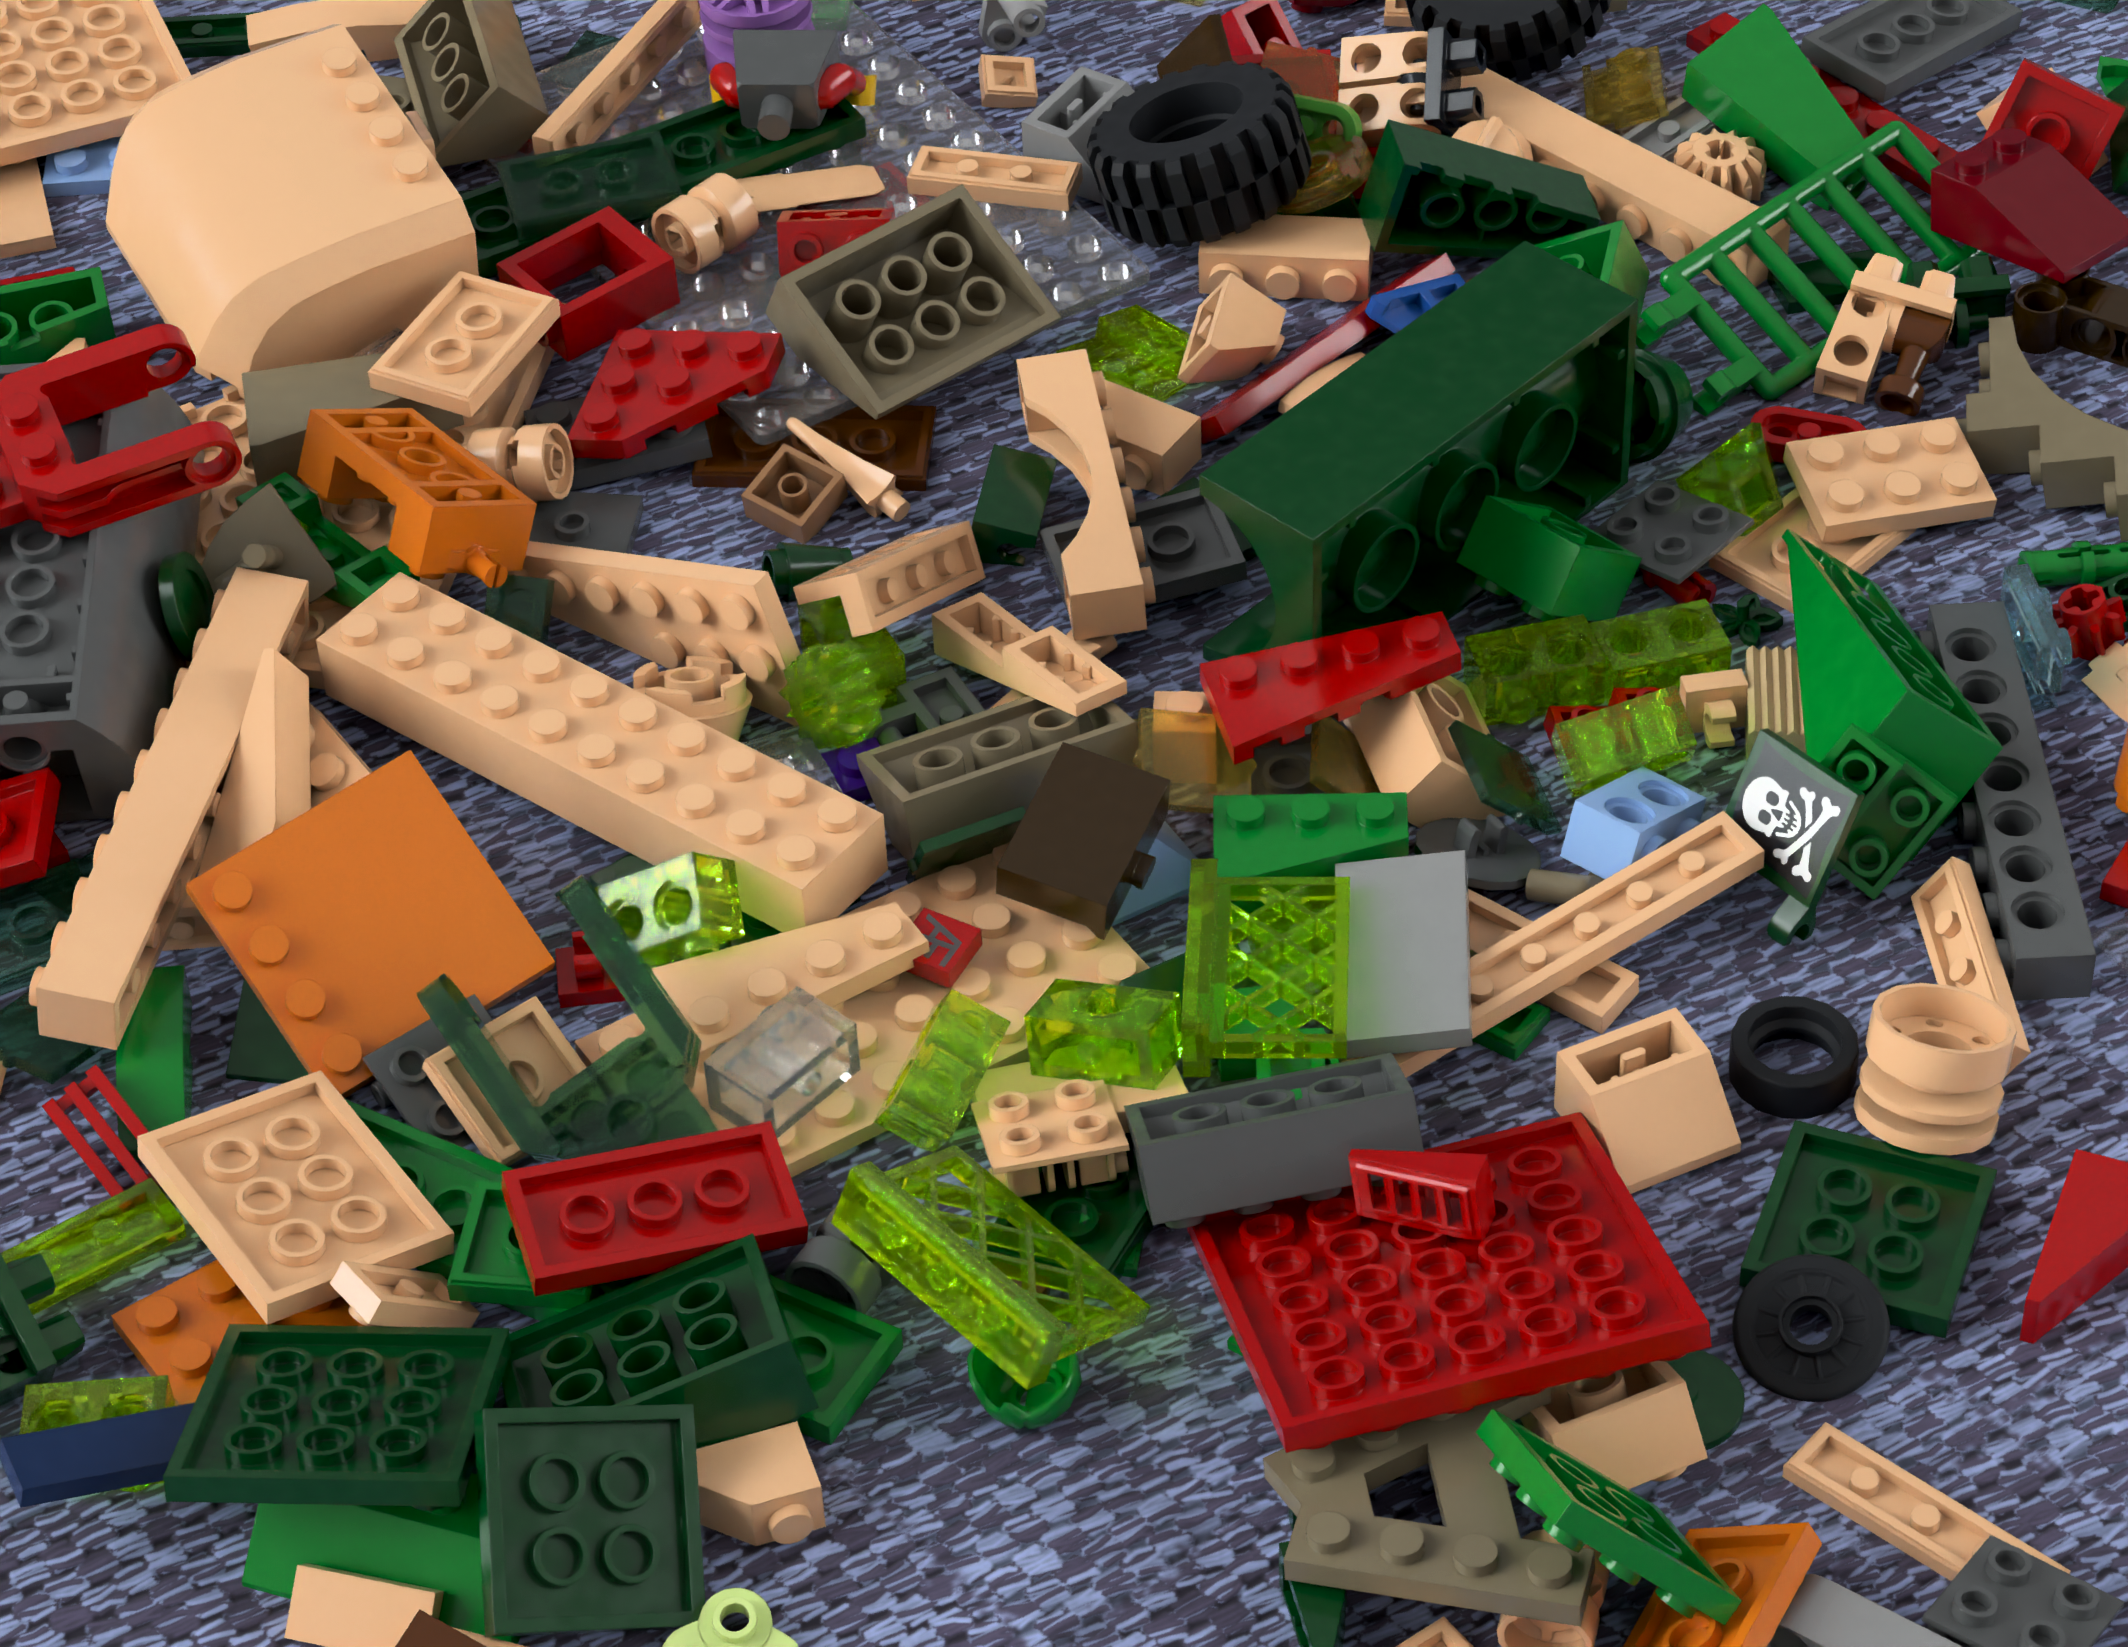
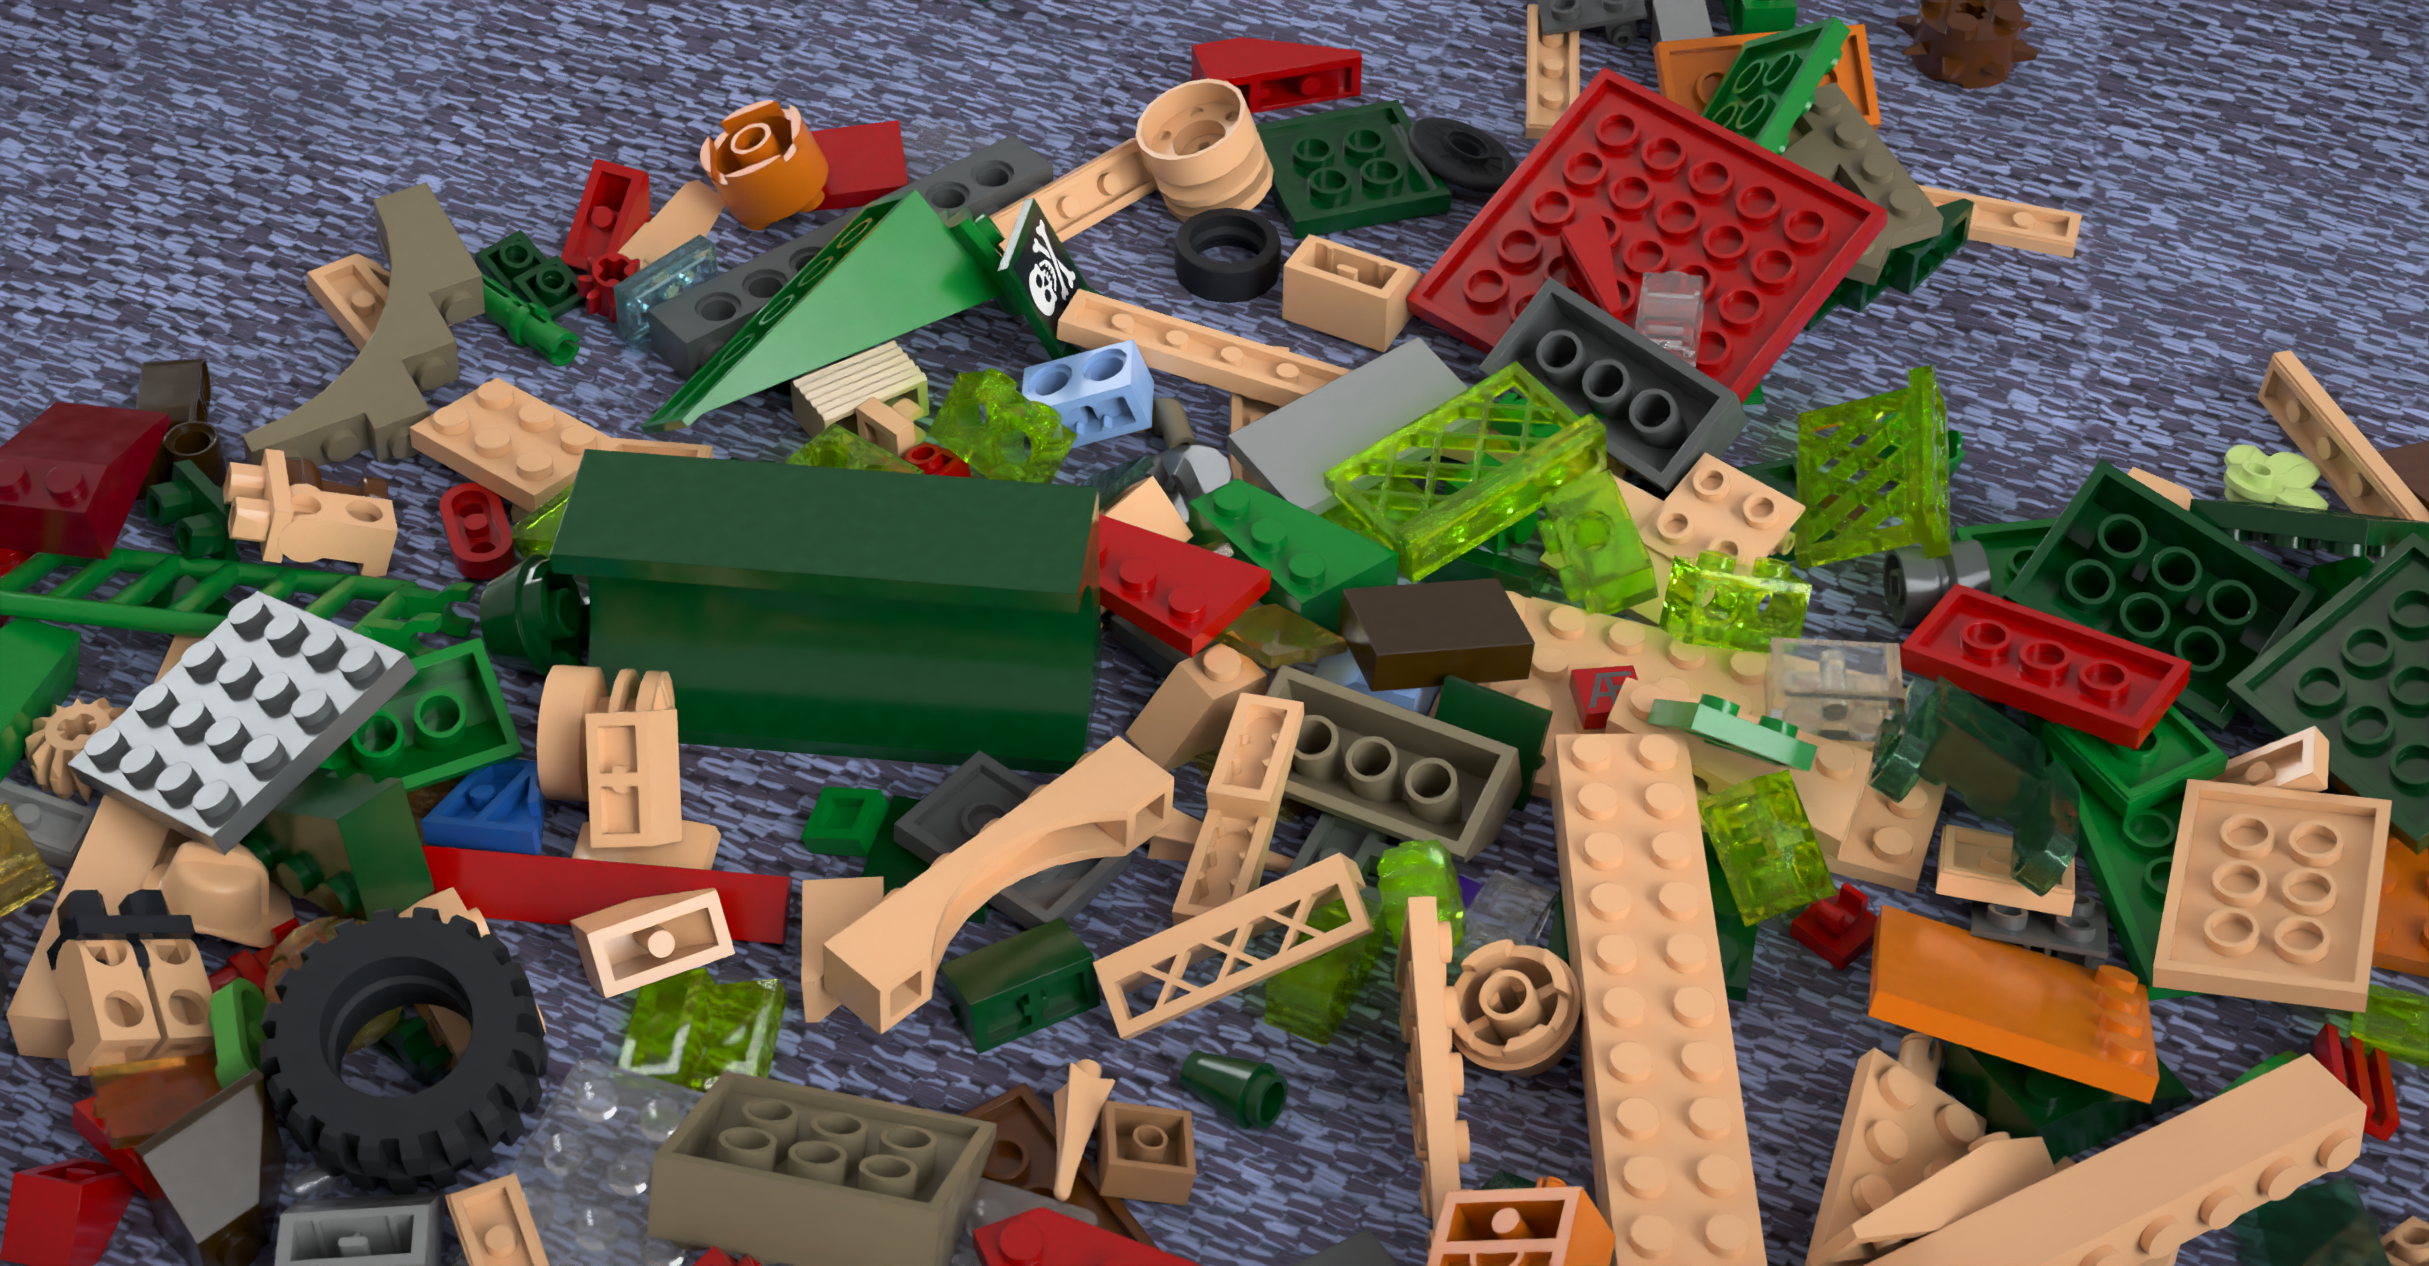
camera: 130 degrees left, 0 degrees up
(772, 910) = (1718, 725): none -> green wing
(1318, 1213) = (1672, 312): none -> clear brick
(1350, 332) = (633, 778): none -> light nougat hinge
(1598, 167) = (241, 720): none -> plate

